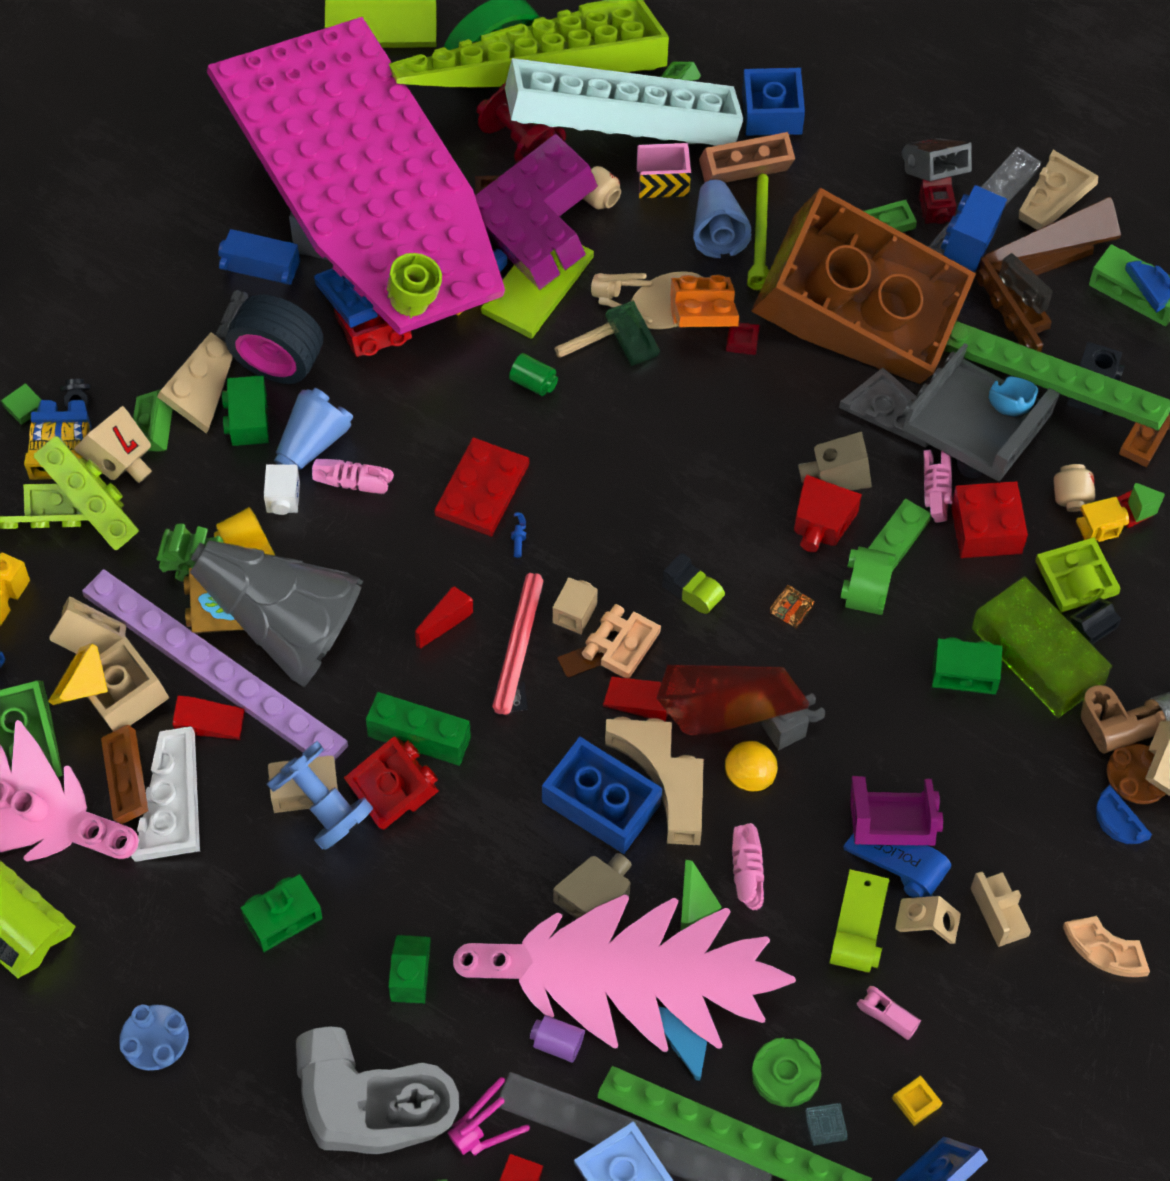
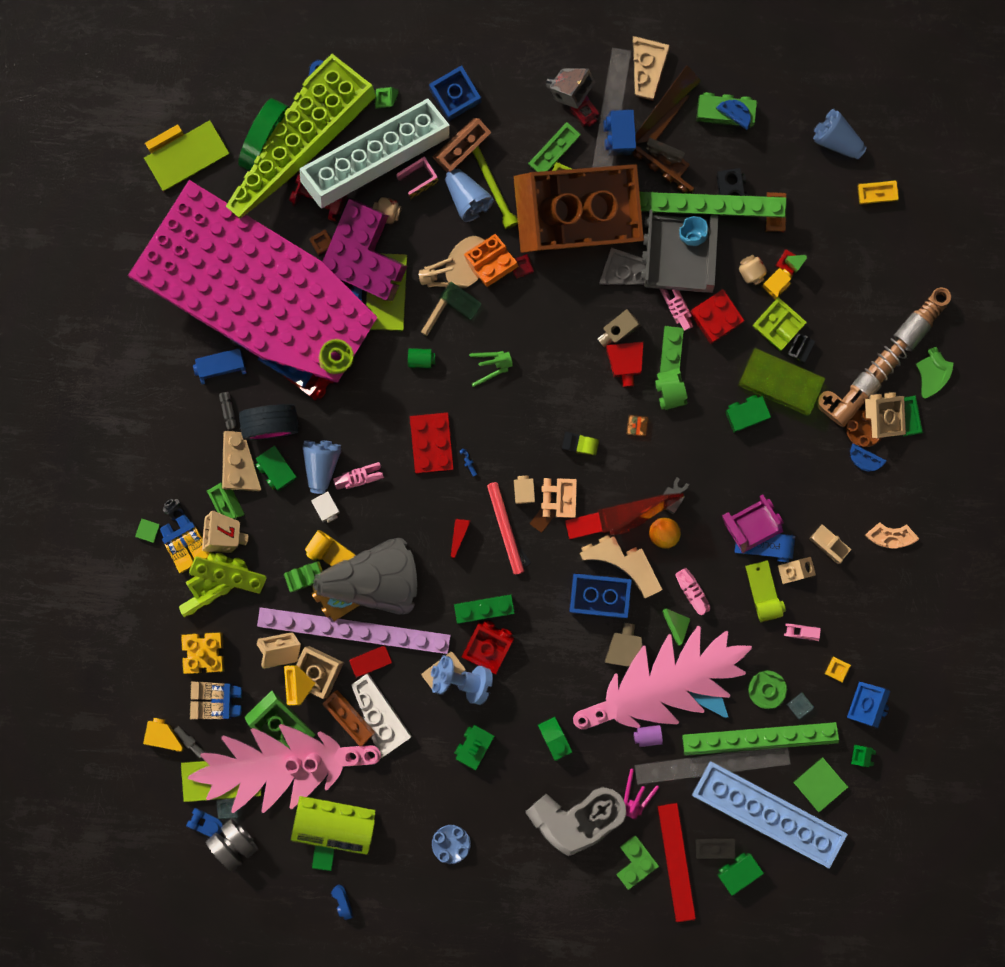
camera: 30 degrees left, 25 degrees up
(645, 432) = (501, 359): none -> bright green plant

